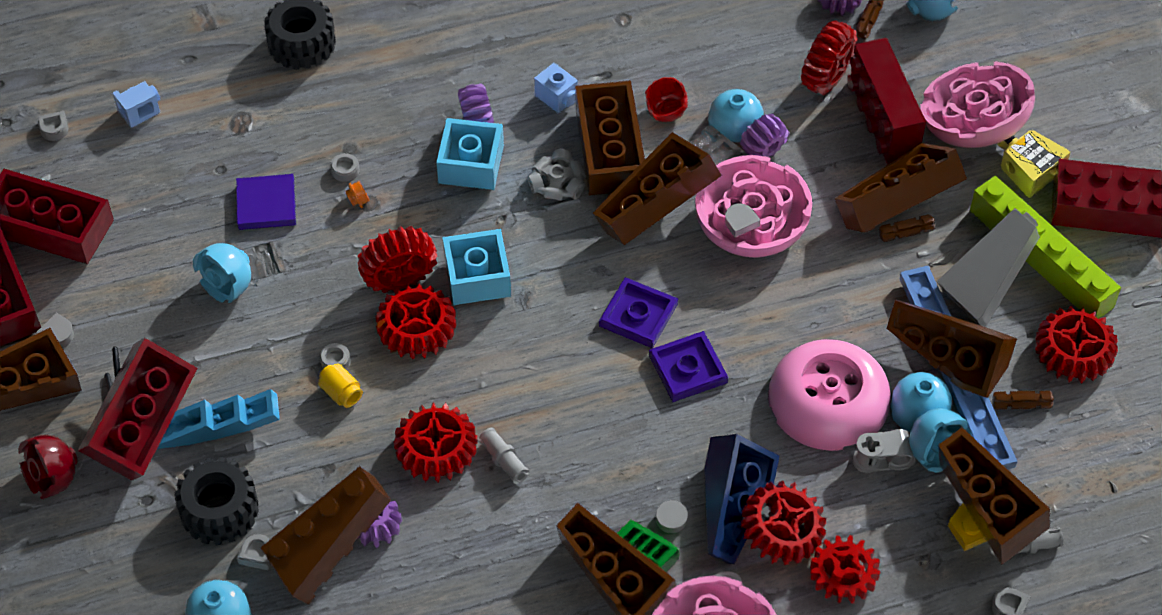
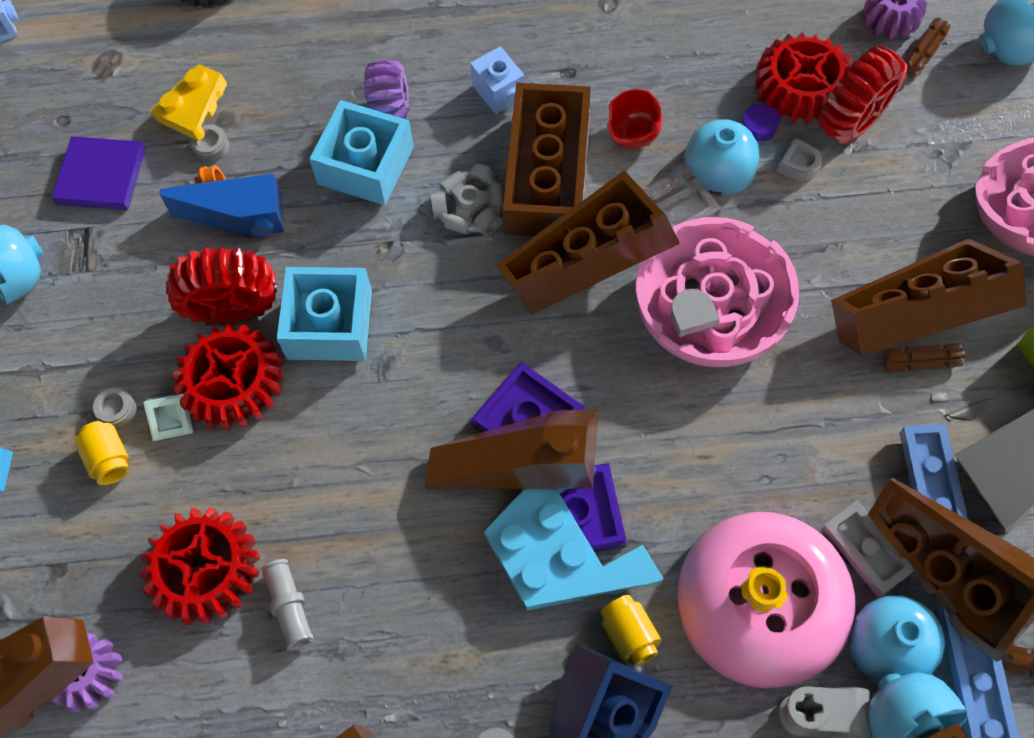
camera: 15 degrees right, 10 degrees up
(322, 140) = (191, 102): none -> yellow wing
(378, 207) = (234, 205): none -> blue slope
(378, 356) = (167, 417): none -> light aqua slope
(651, 330) = (530, 454): none -> reddish brown wedge
(676, 389) = (552, 558): none -> medium azure wing
(742, 422) = (630, 630): none -> yellow brick
(760, 87) = (762, 121): none -> dark purple tile
(764, 136) = (752, 193): medium lavender gear -> none
(783, 44) = (805, 67): none -> red gear
(794, 111) = (800, 161): none -> light grey tile
(830, 371) = (773, 581): none -> yellow plate
(885, 99) = (931, 168): dark red brick -> none
(891, 351) = (867, 549): none -> light grey plate

